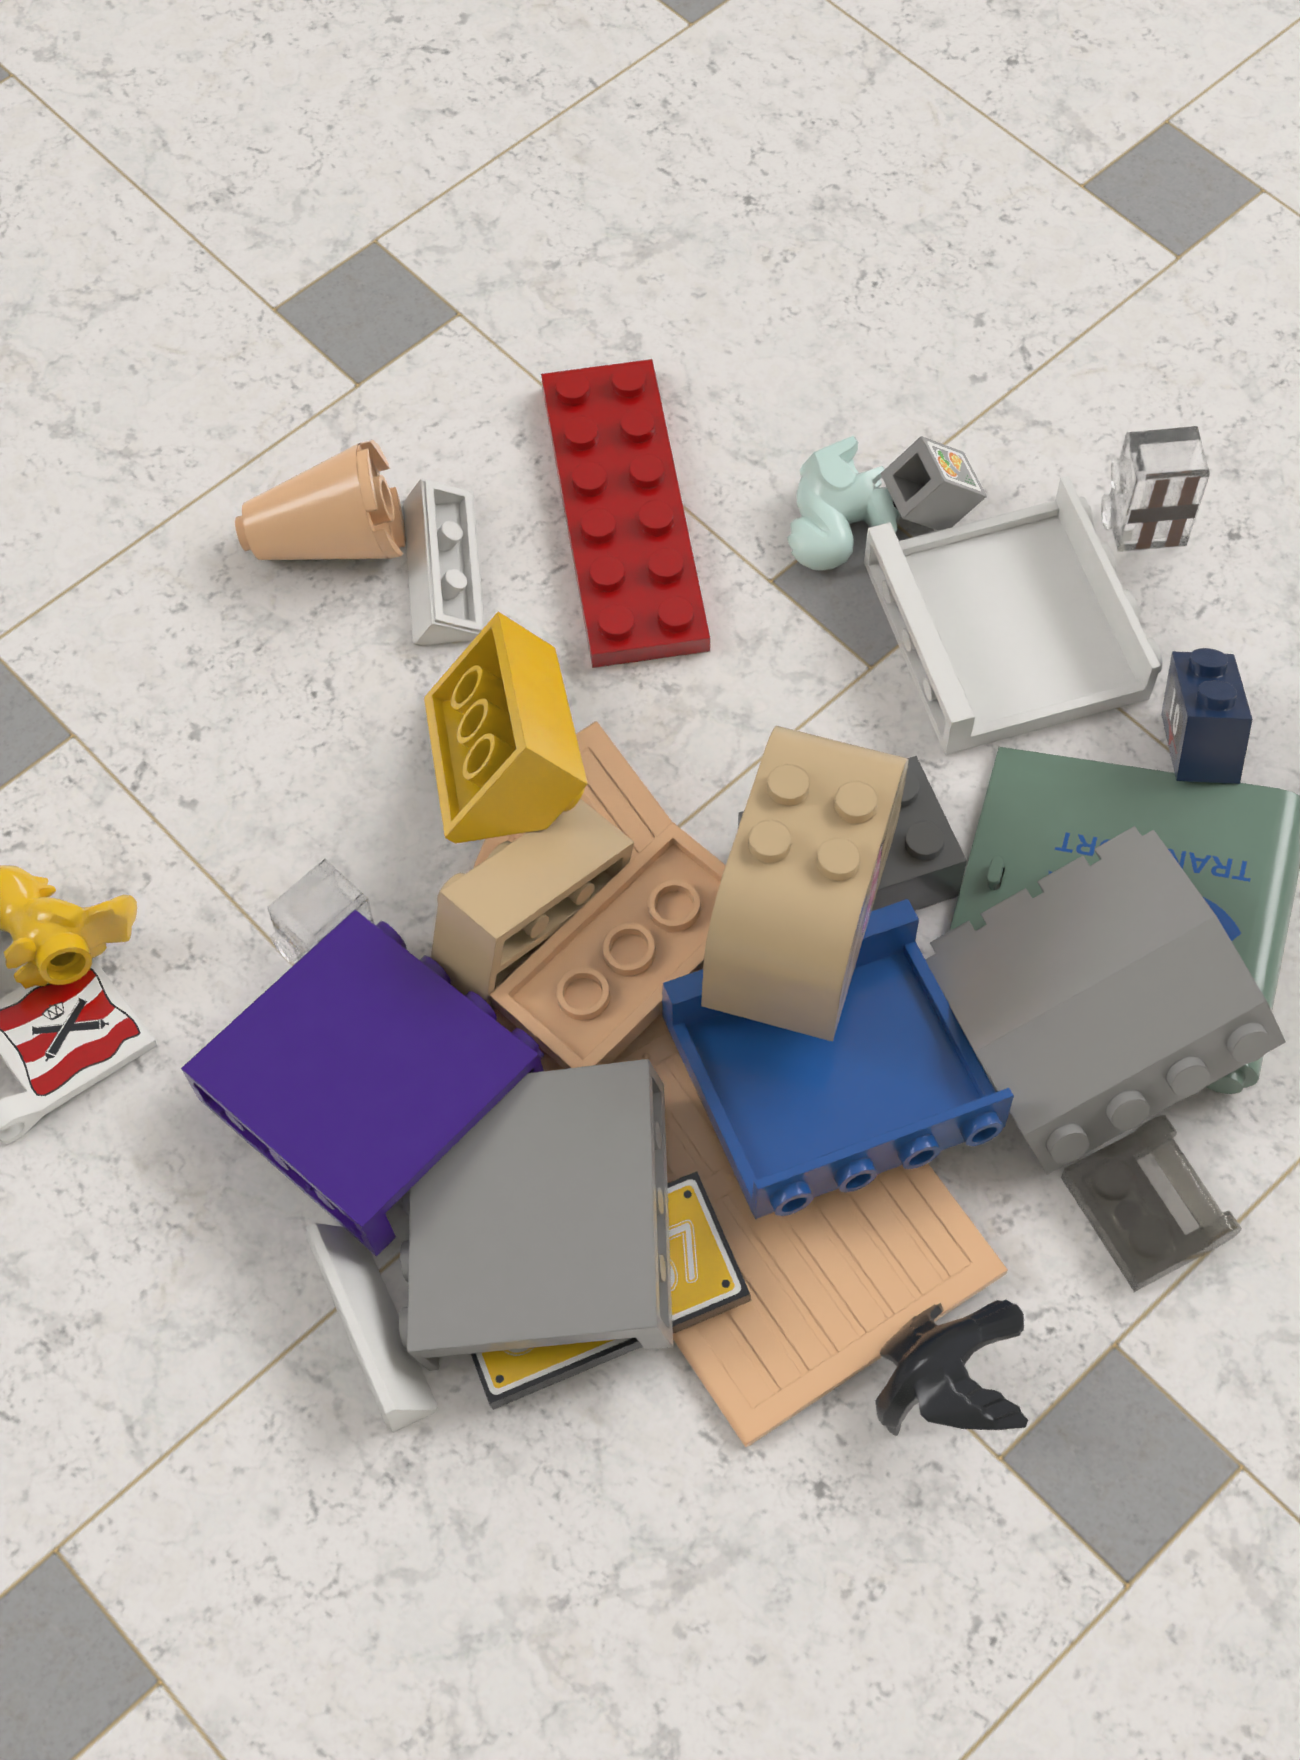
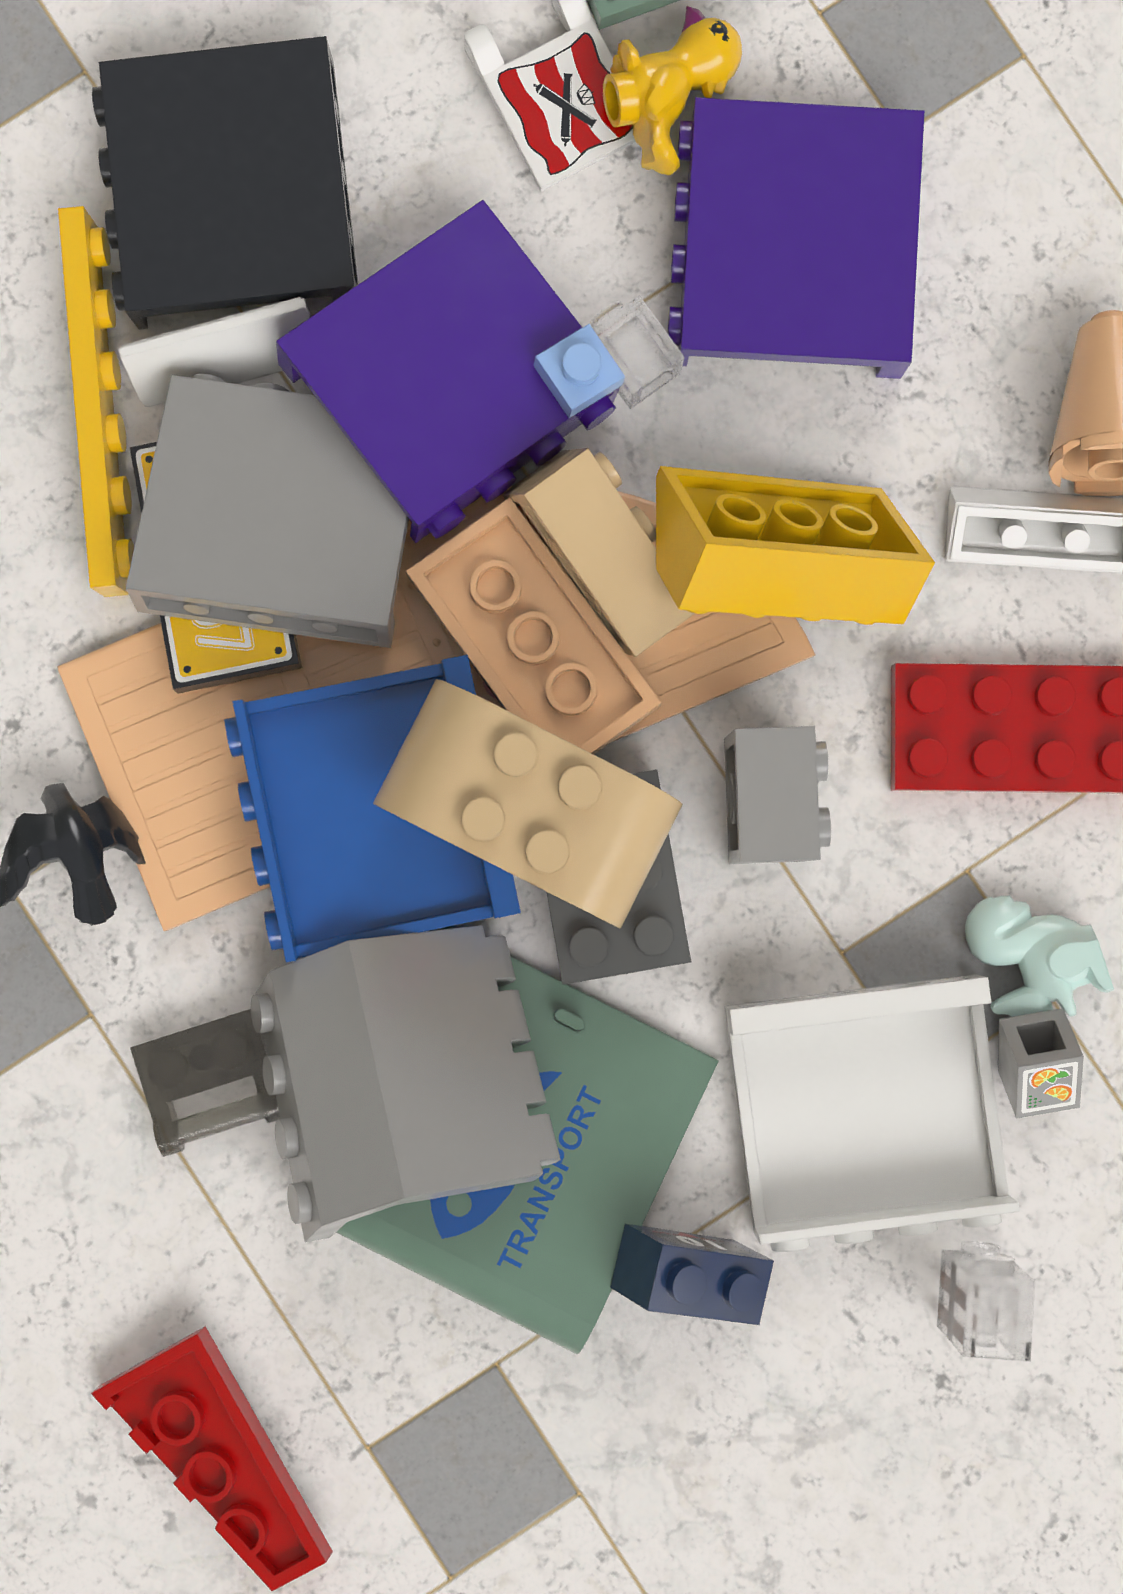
camera: 100 degrees right, 25 degrees up
(178, 1349) = (225, 178): none -> black panel
(187, 791) = (798, 233): none -> dark purple panel
(354, 941) = (579, 370): none -> light blue plate
(419, 1452) = (94, 376): none -> yellow plate
(730, 709) = (775, 795): none -> light grey brick

